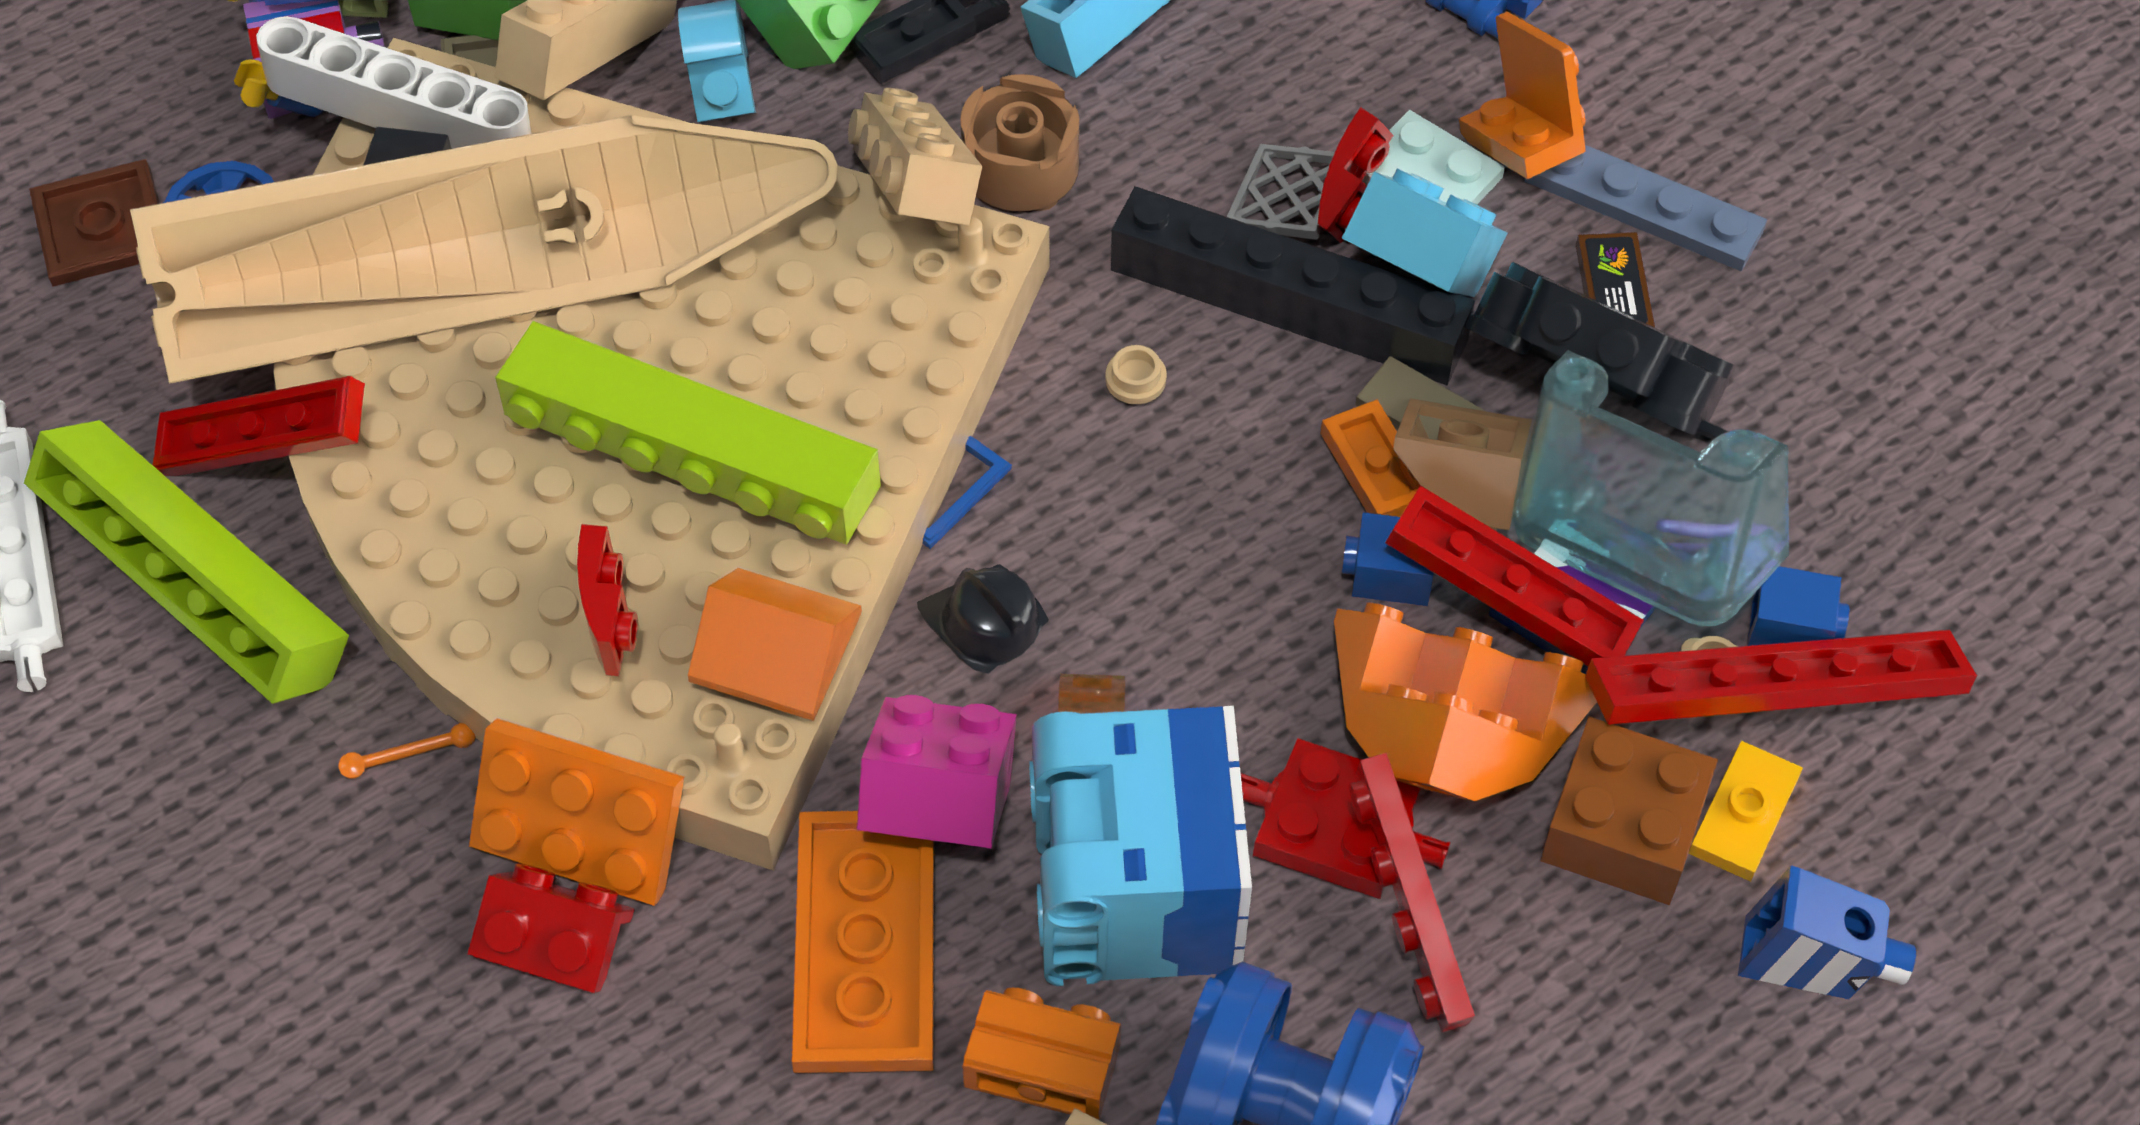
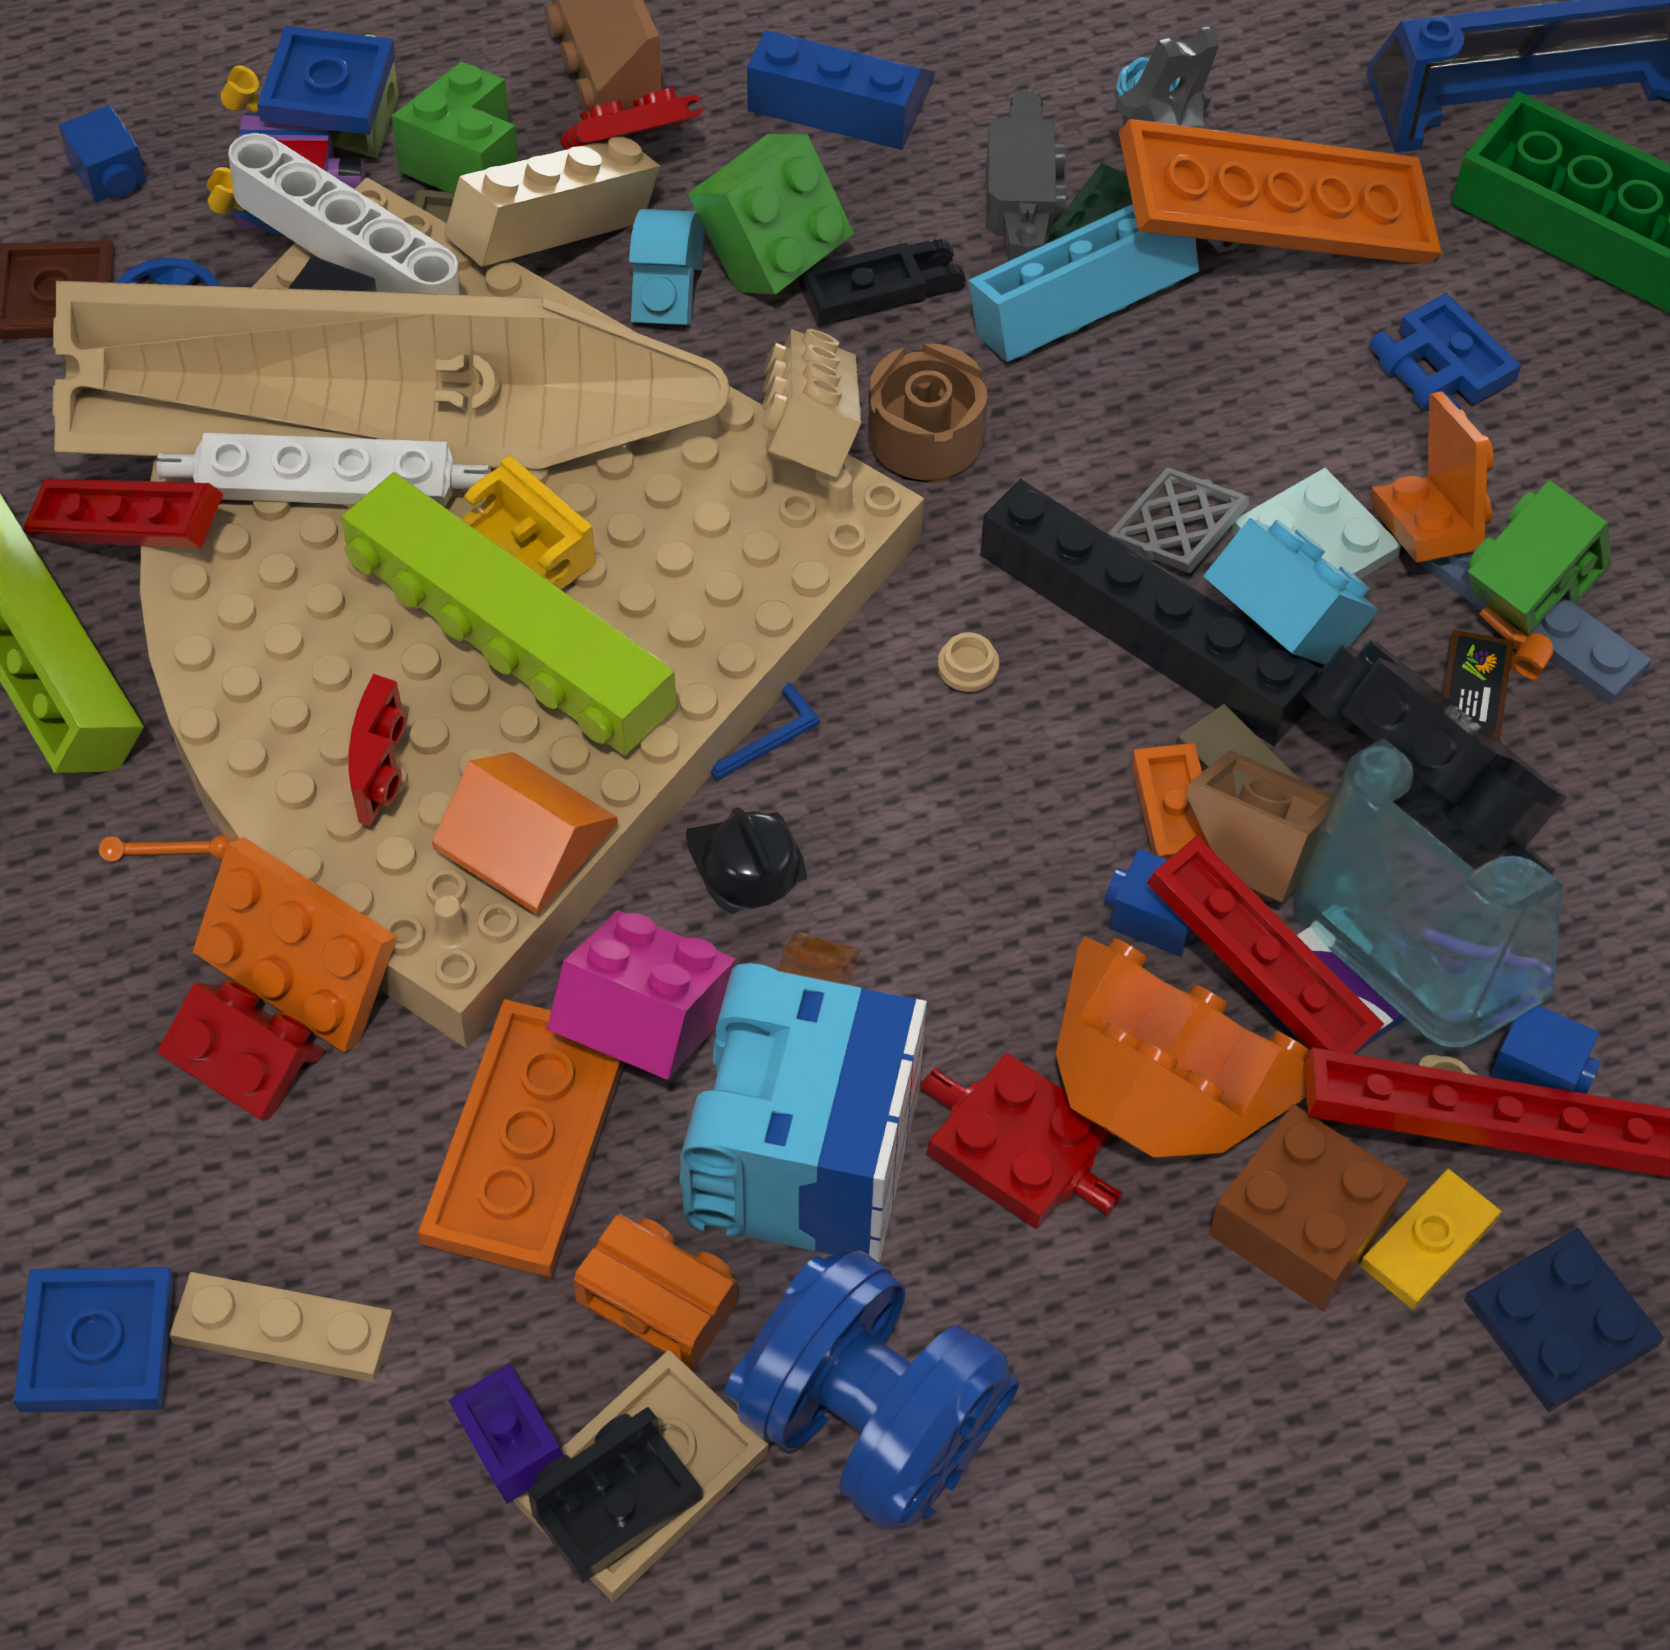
camera: 15 degrees right, 0 degrees up
(108, 74) = (103, 154): none -> blue brick
(448, 335) = (317, 467): none -> white plate
(683, 337) = (531, 523): none -> yellow hinge
(1358, 153) = (1254, 495): red slope -> none
(1419, 921) = (1059, 1260): plate -> none
(1644, 147) = (1543, 554): none -> bright green brick
(1656, 236) = (1531, 650): none -> orange hand
(1821, 937) = (1459, 1384): blue torso -> none
(1892, 849) = (1563, 1319): none -> dark blue plate

